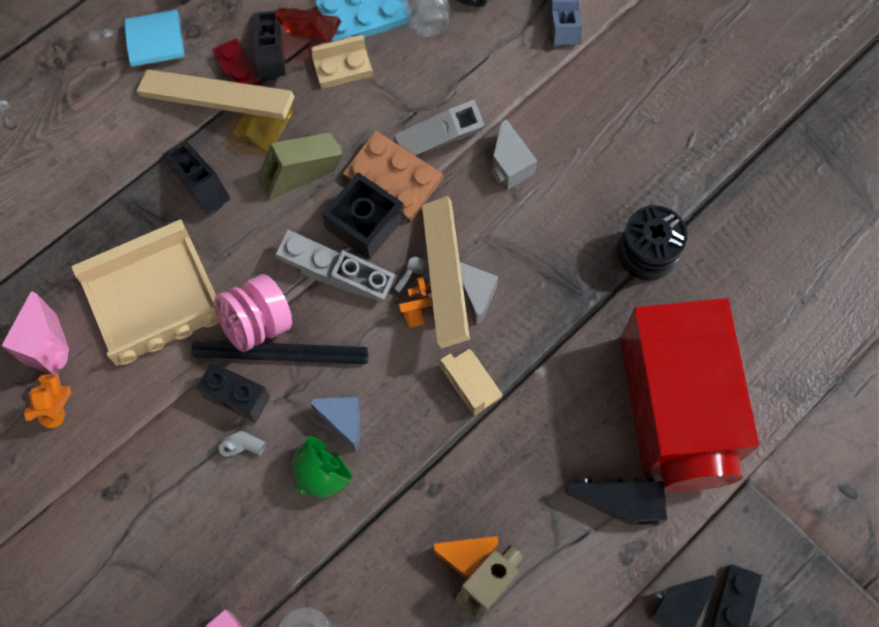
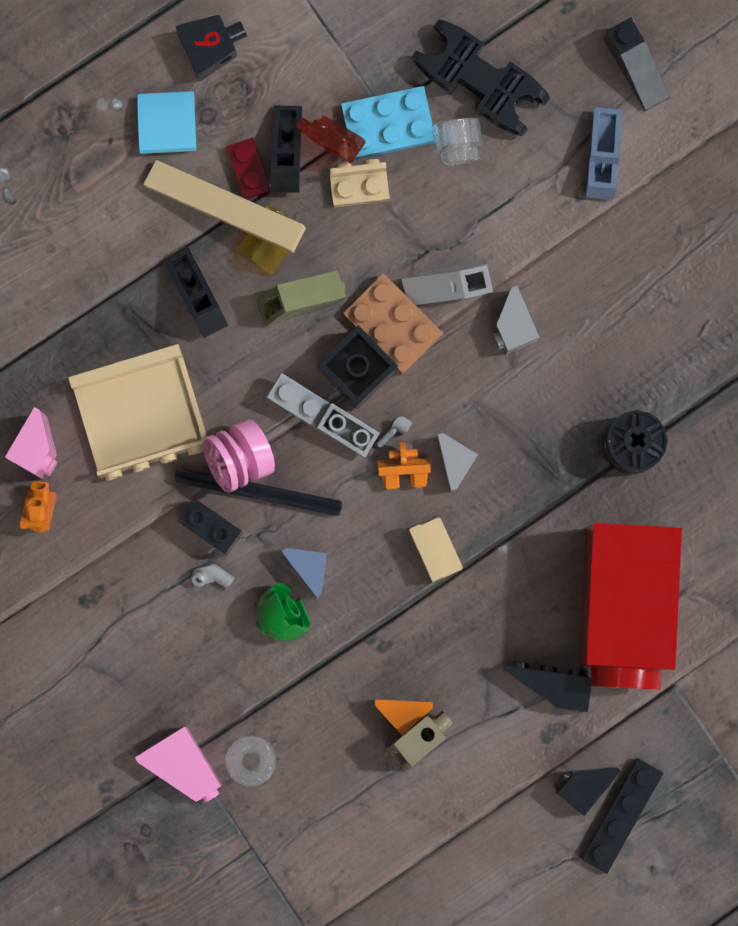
camera: 10 degrees right, 15 degrees up
(445, 273) = (427, 441): tan tile -> none

